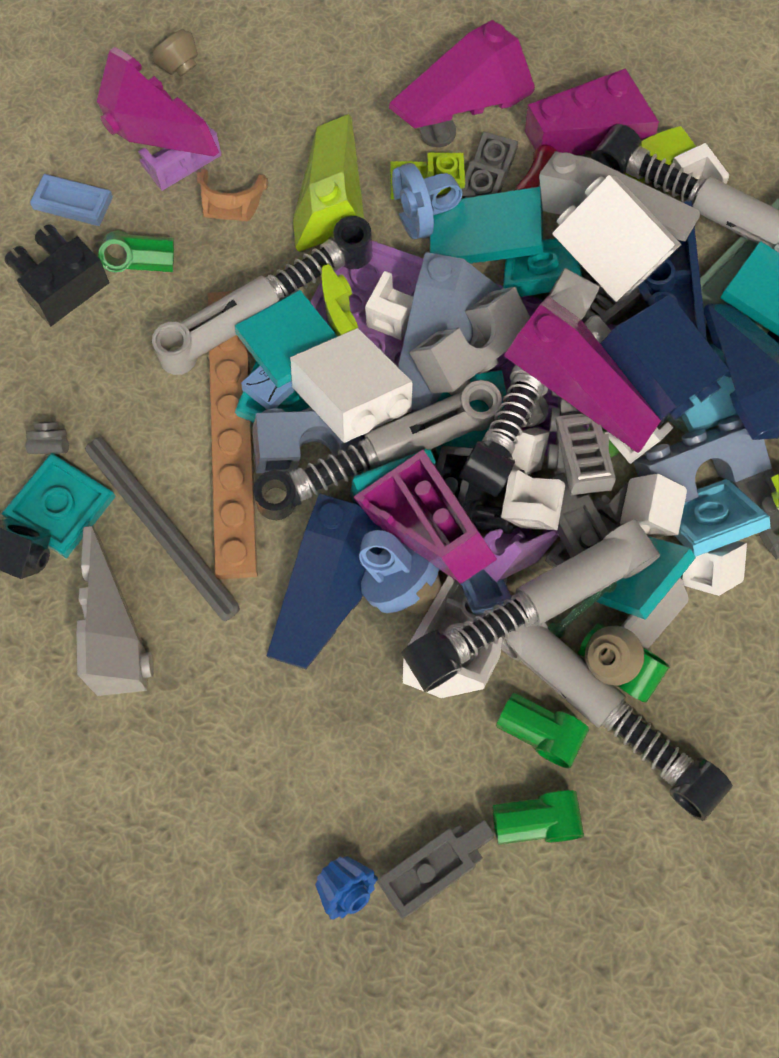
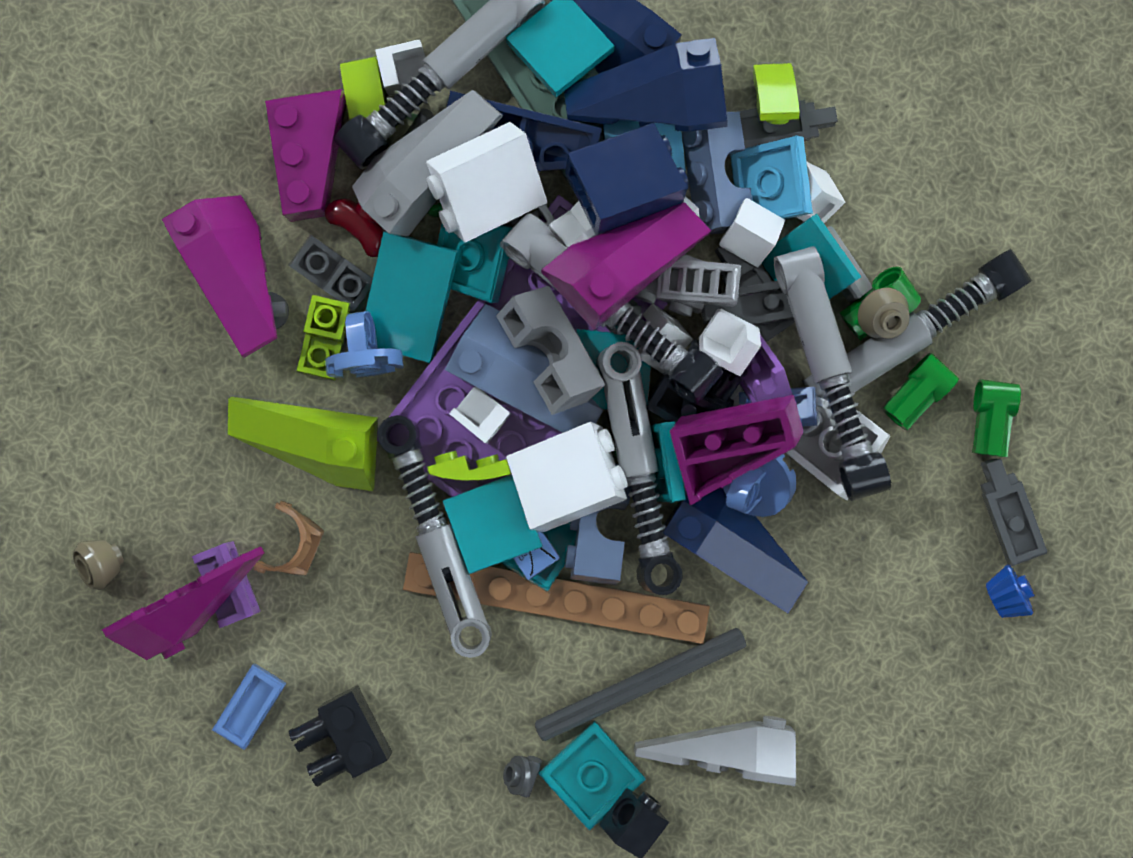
camera: 80 degrees left, 20 degrees up
(142, 252) = (336, 665): green piece -> none

